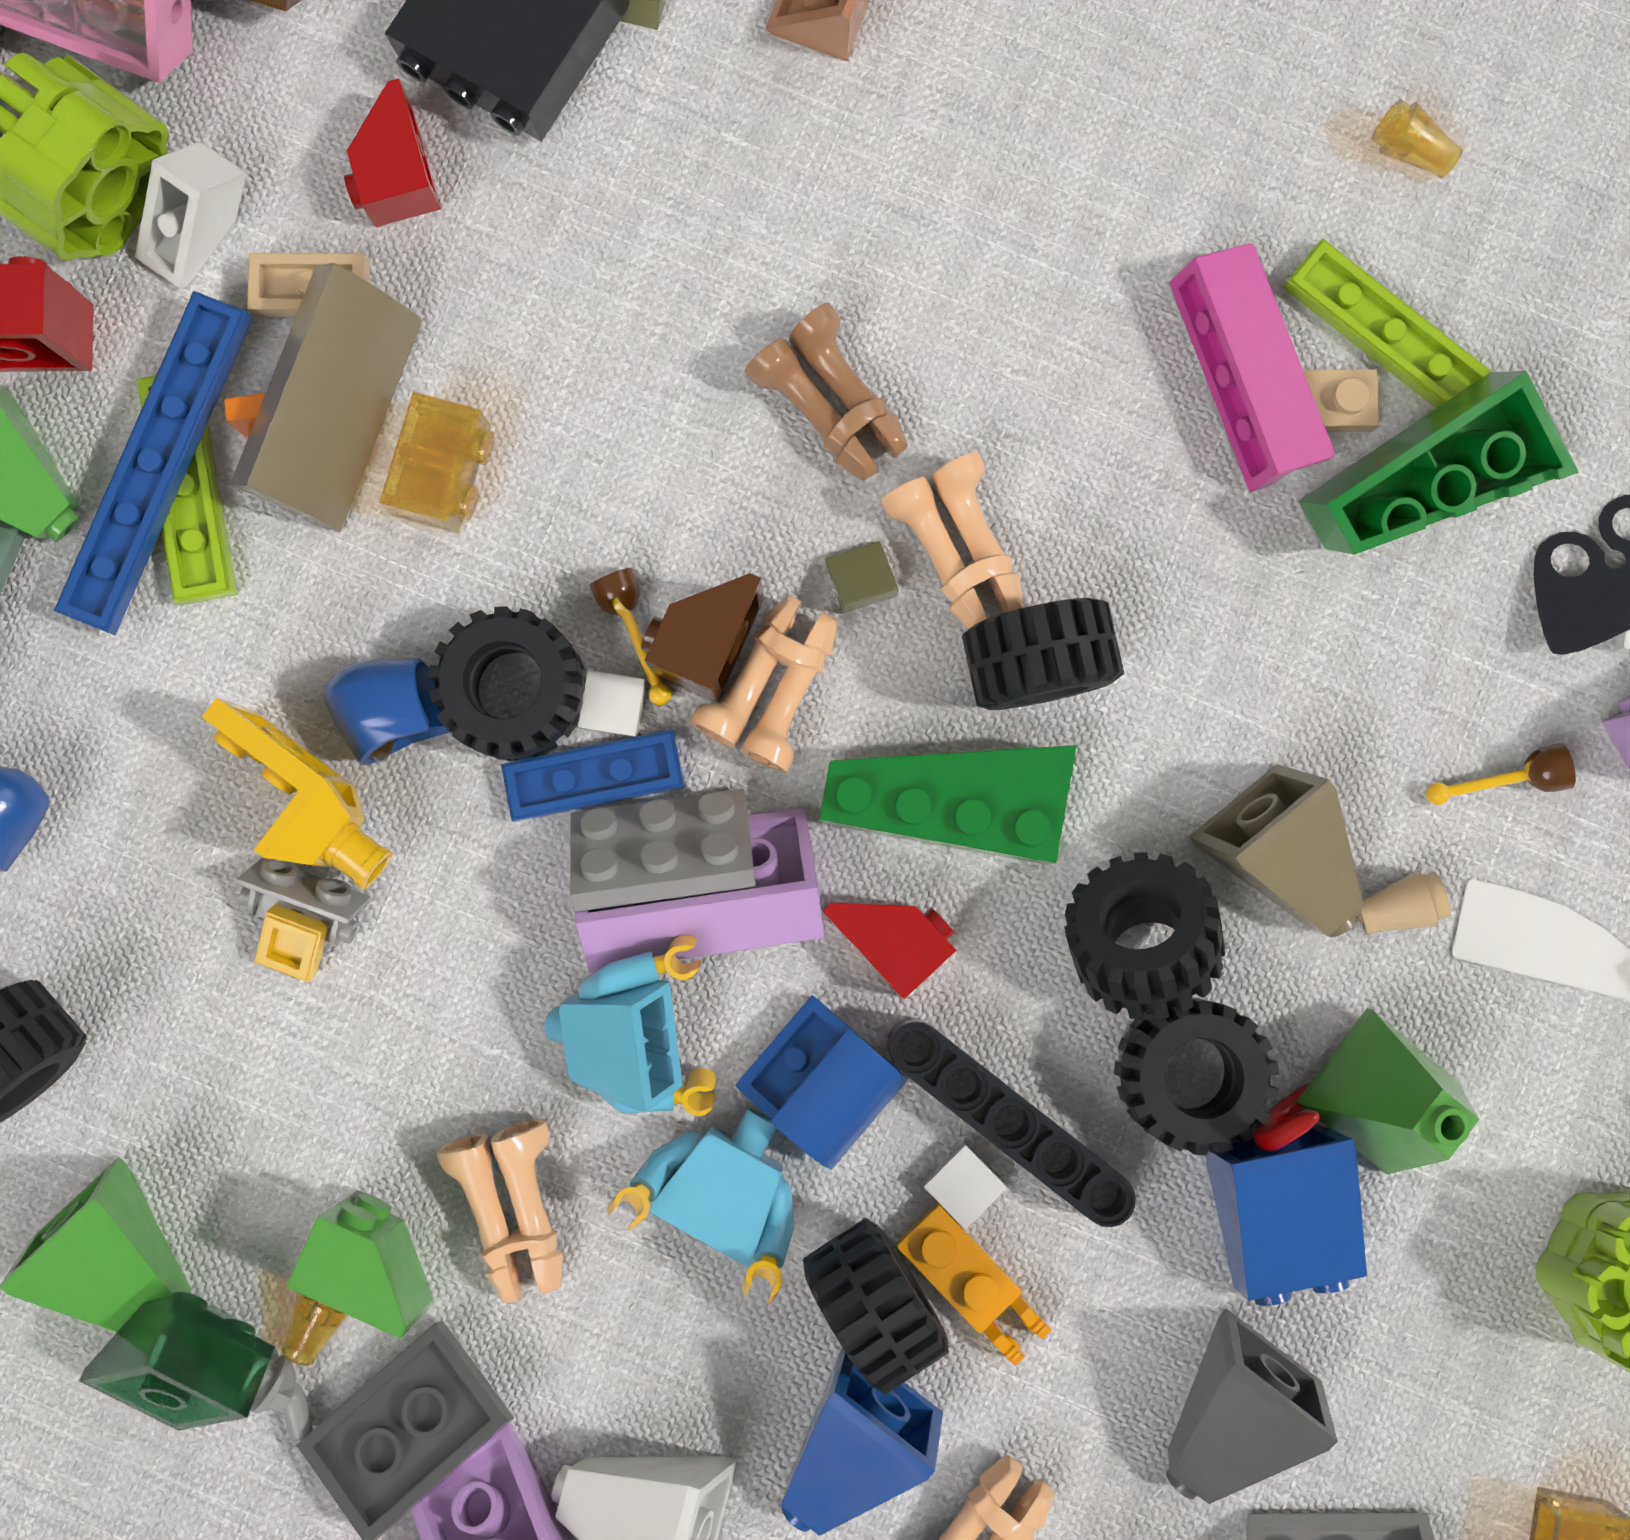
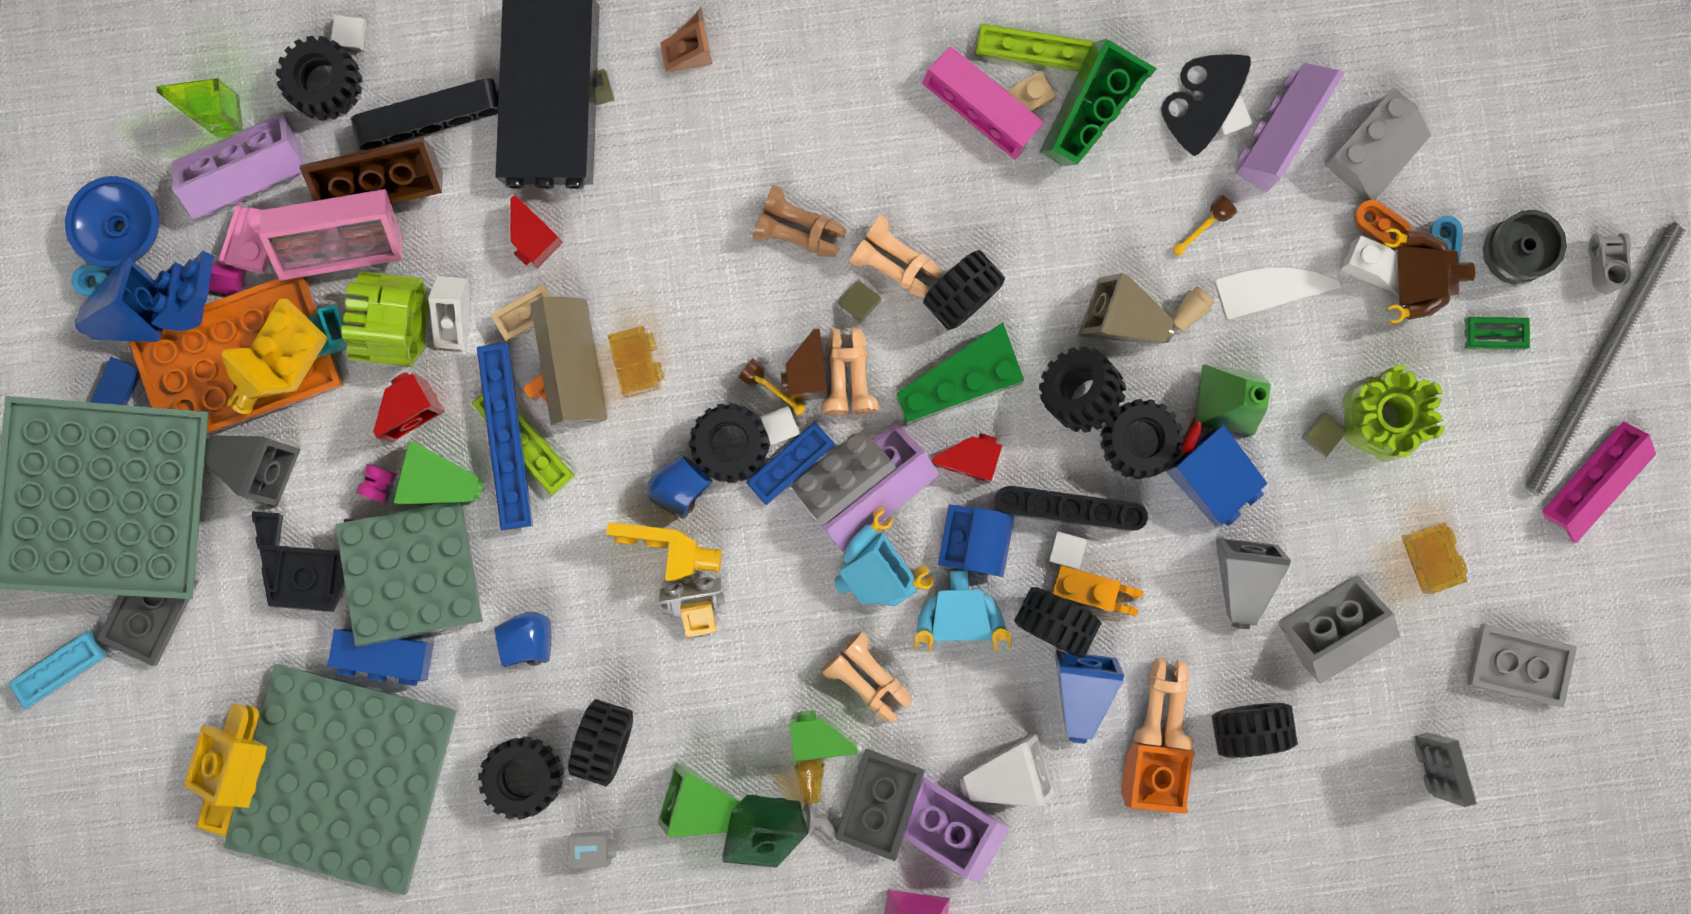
camera: 25 degrees left, 0 degrees up
(1505, 1241) = (1324, 434): none -> olive slope

